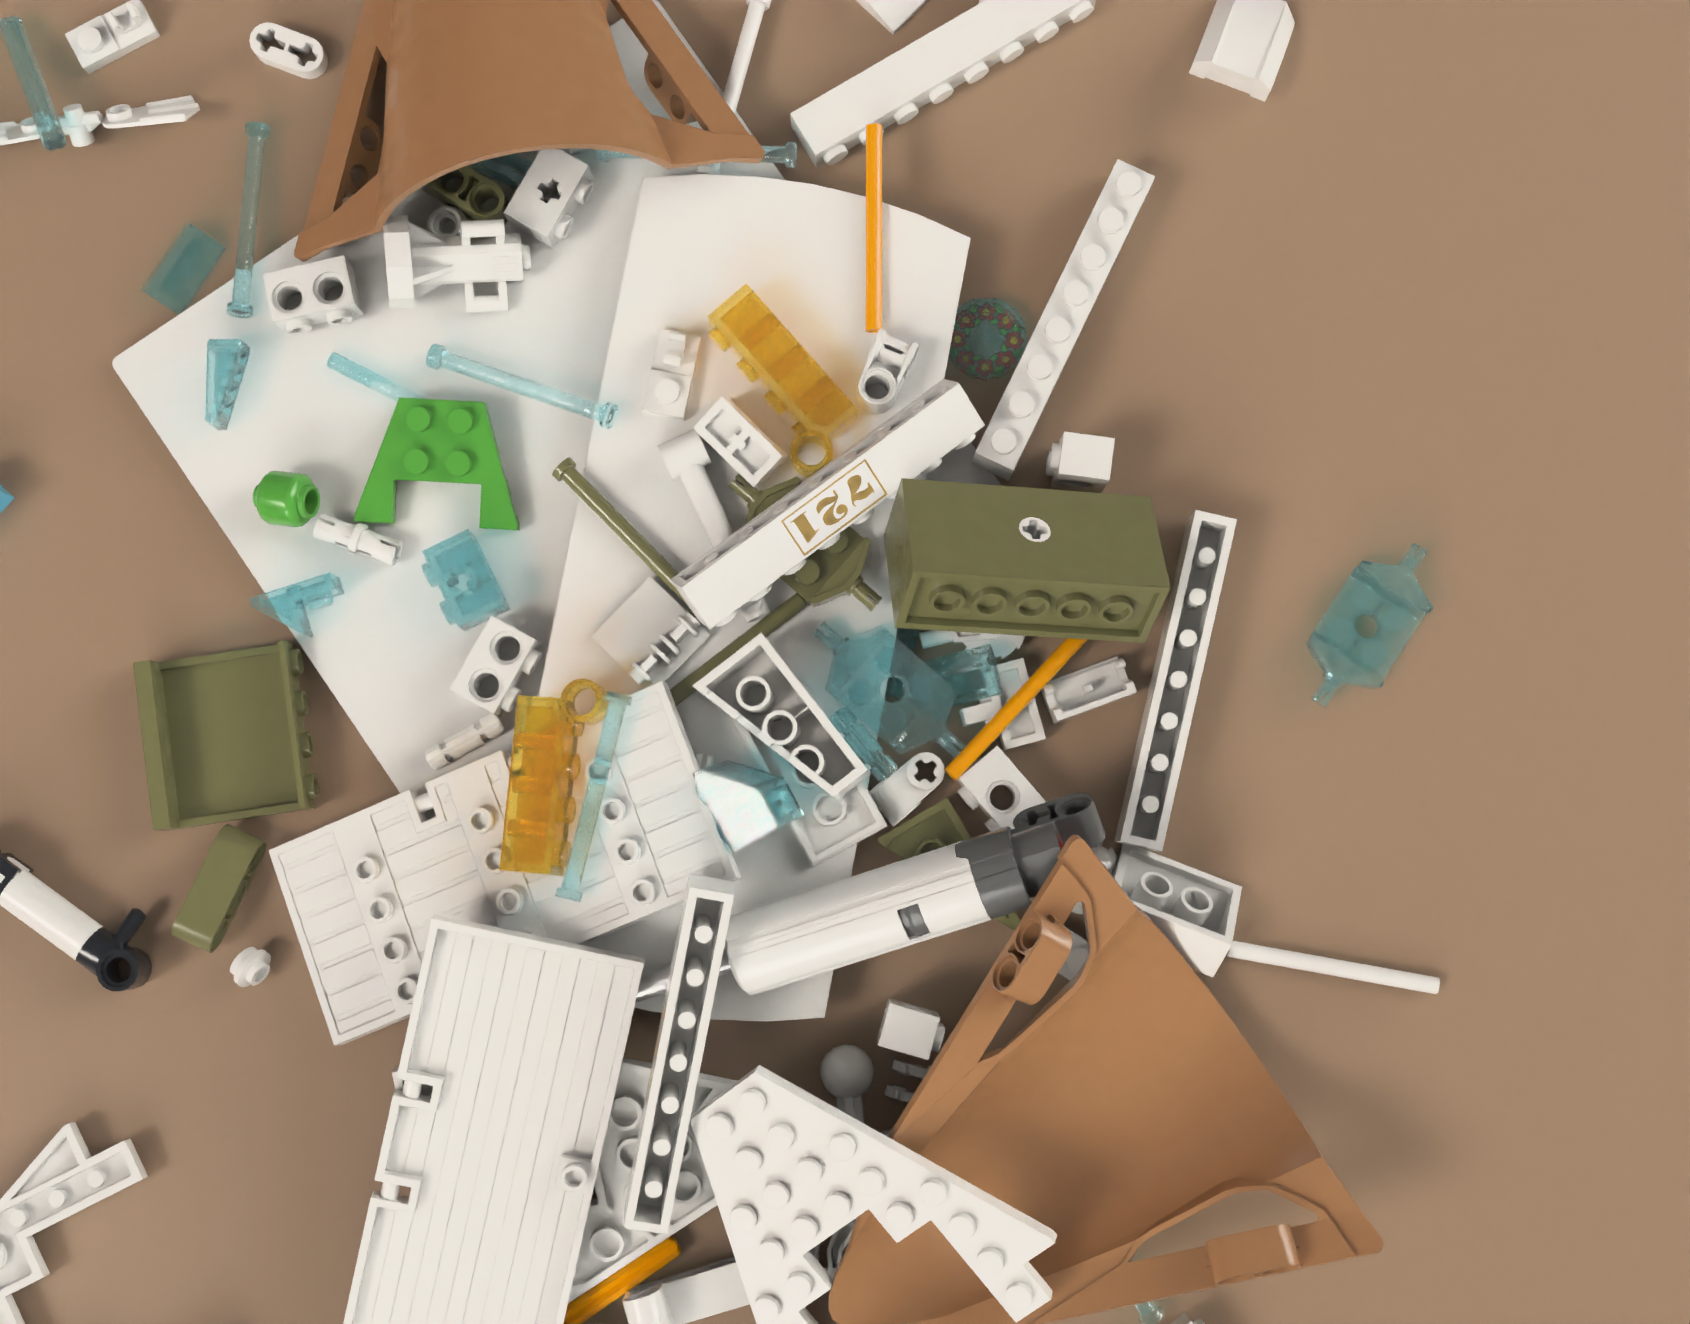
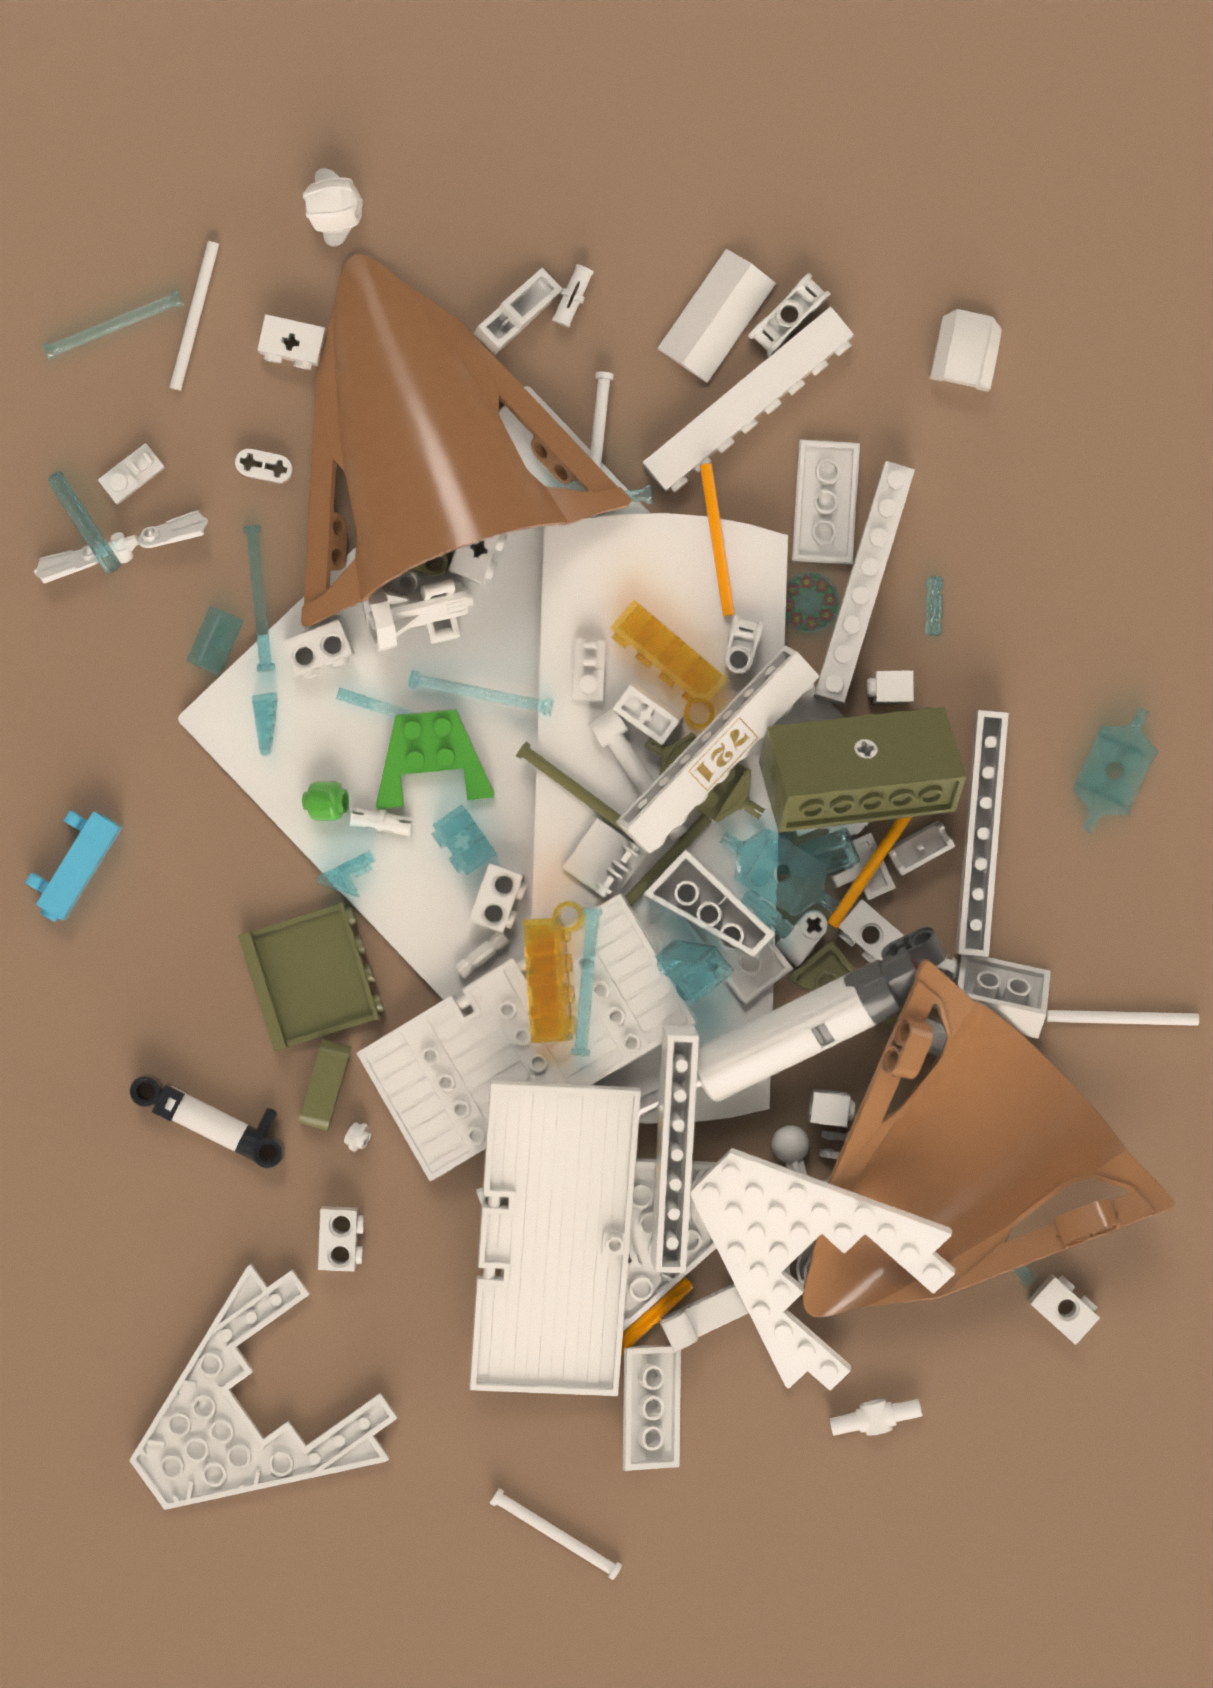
camera: 10 degrees left, 5 degrees up
(188, 1101) = (331, 1237): none -> white brick
(1027, 210) = (825, 502): none -> white tile
(1153, 368) = (934, 606): none -> clear light blue axle

